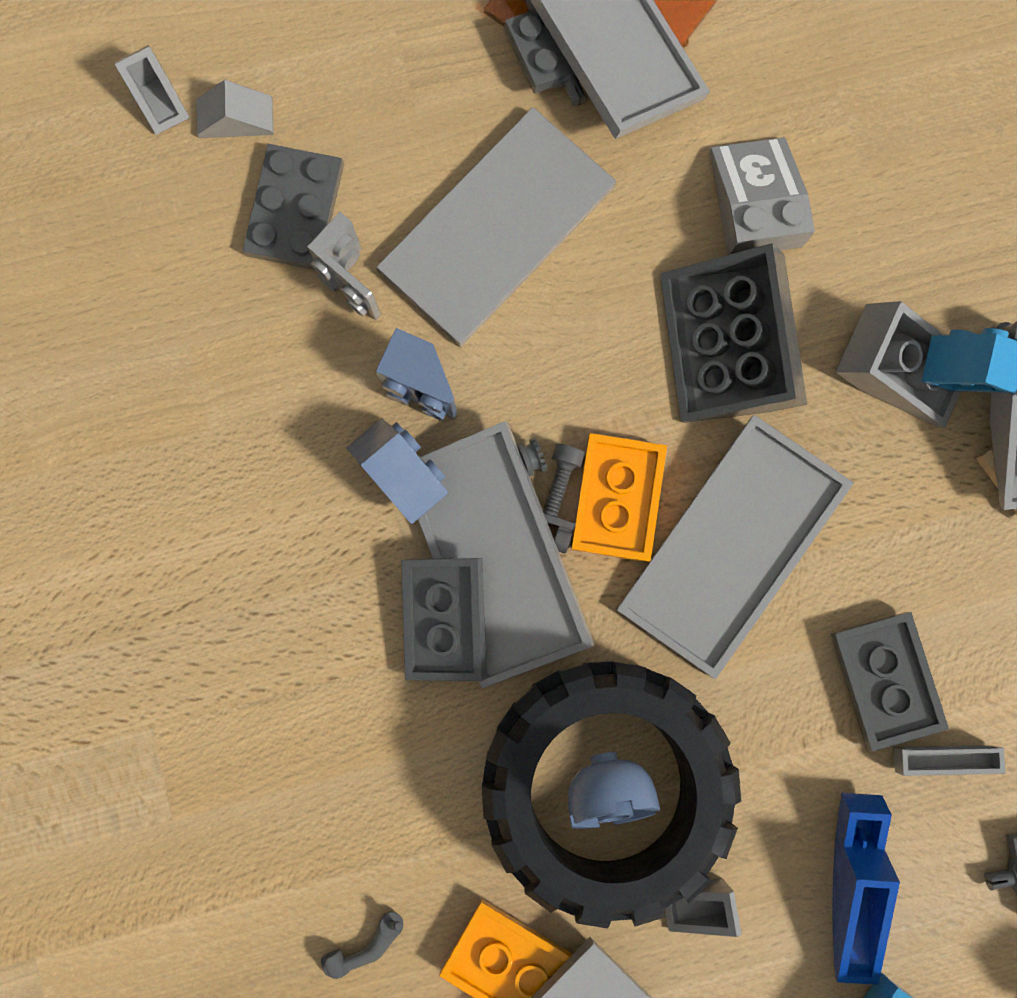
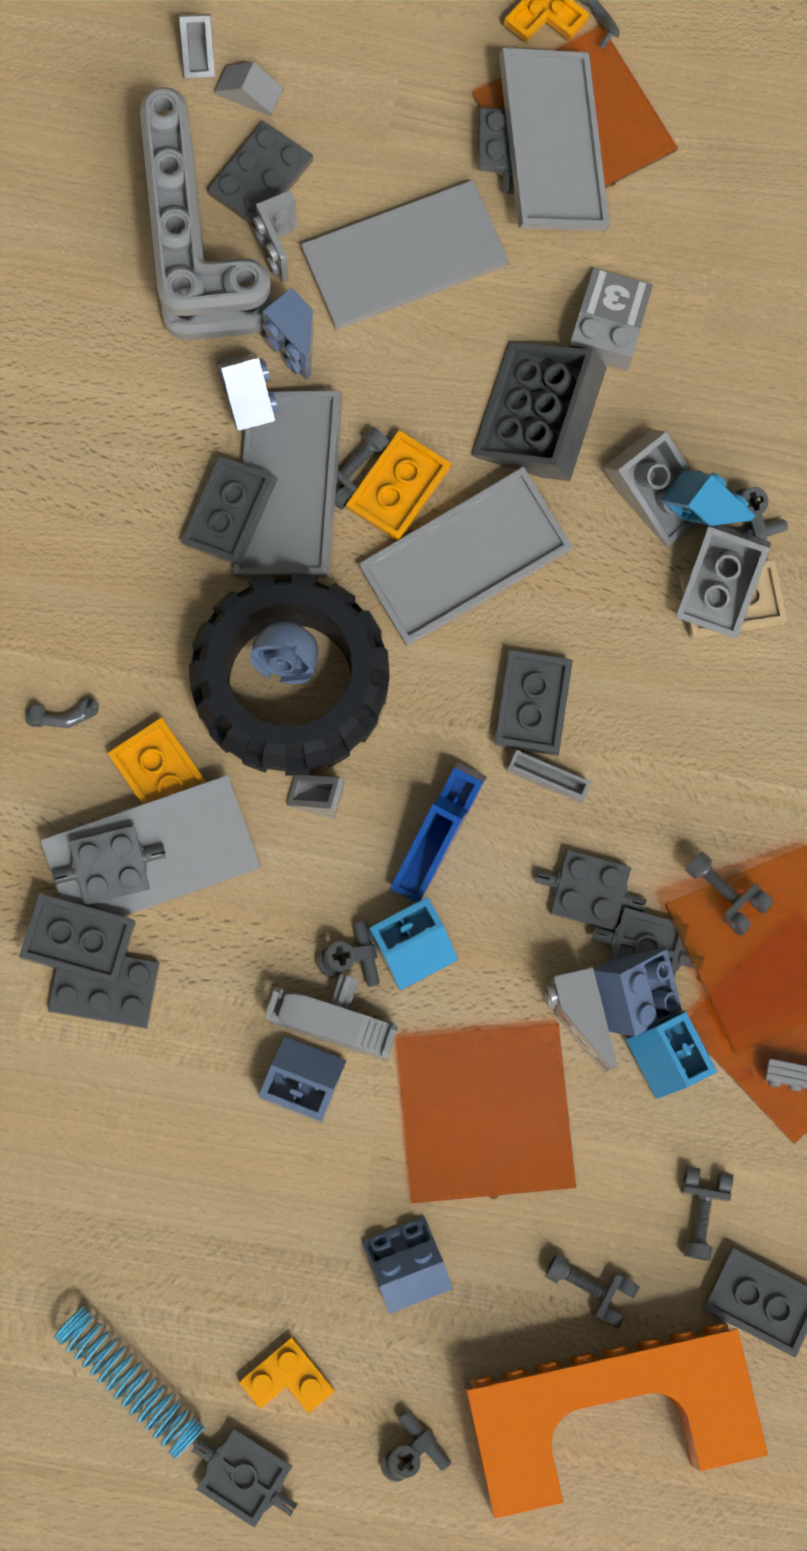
camera: 20 degrees right, 5 degrees down
(275, 384) = (183, 277): none -> light grey beam
(531, 456) = (347, 428): dark grey bush -> none

